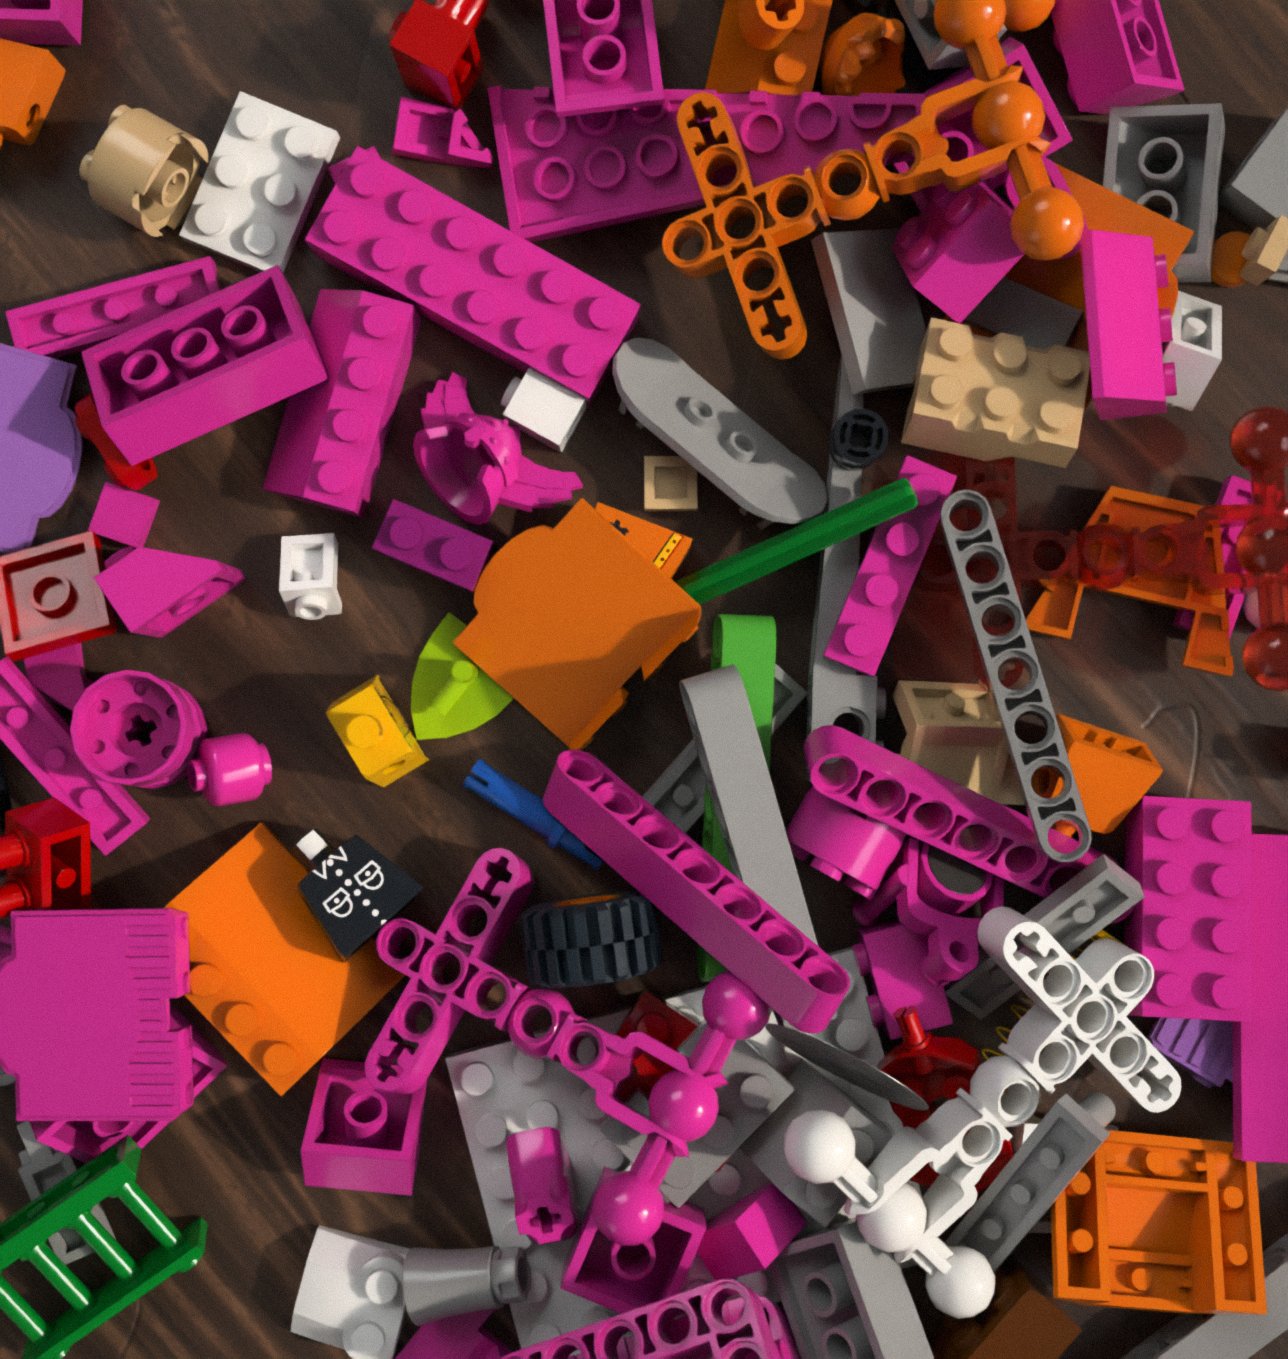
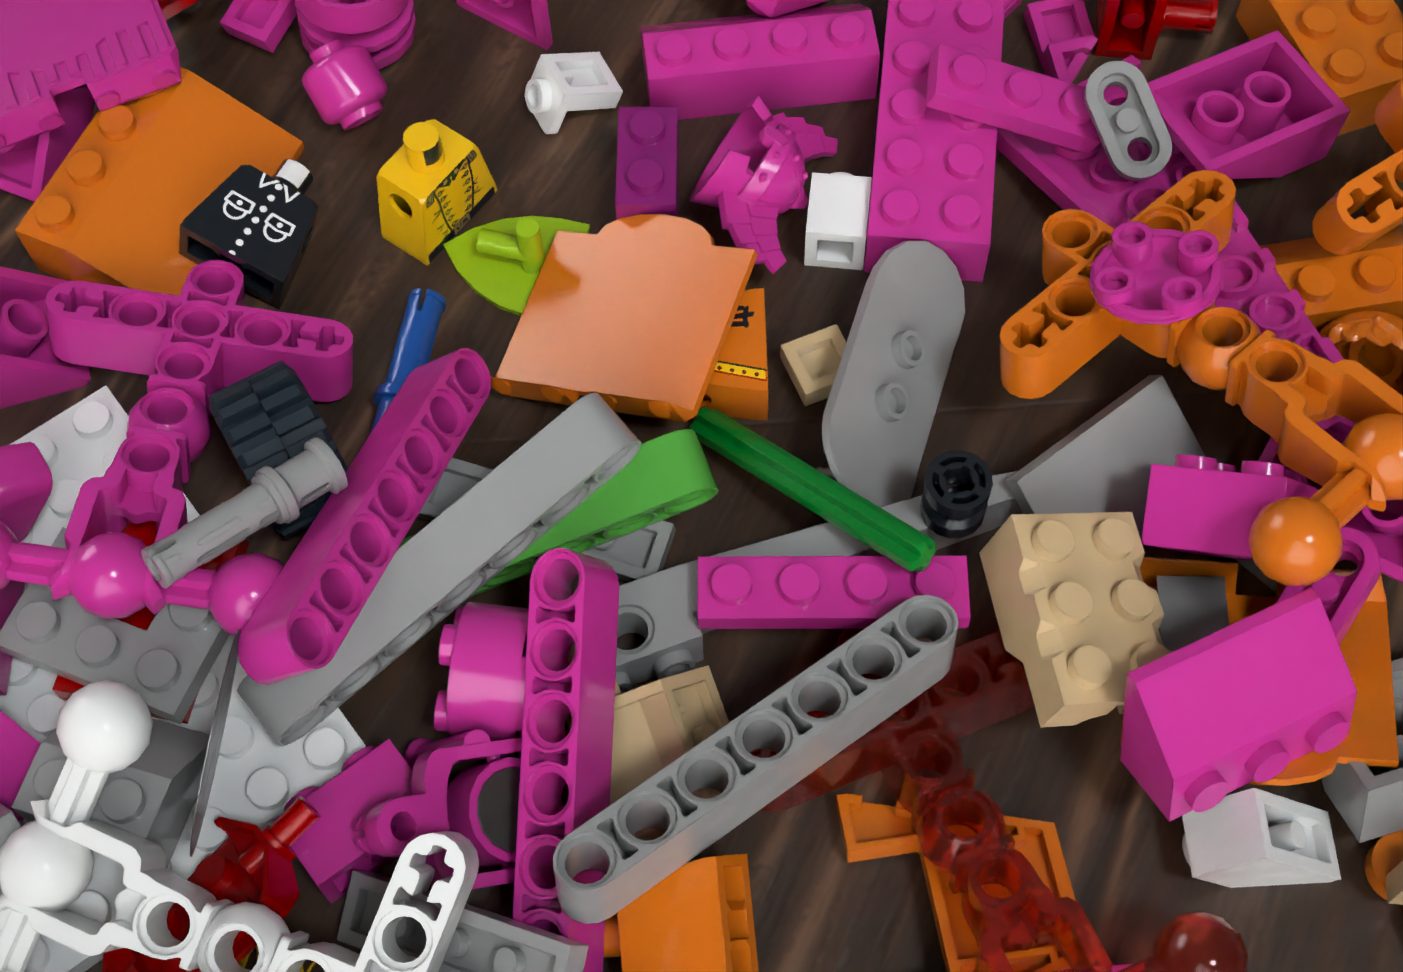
camera: 70 degrees right, 25 degrees down
(519, 218) = (1010, 98): none -> dark pink plate
(583, 137) = (1132, 121): none -> light grey plate
(671, 964) = (271, 498): none -> light grey pin
(779, 203) = (1157, 274): none -> dark pink dish

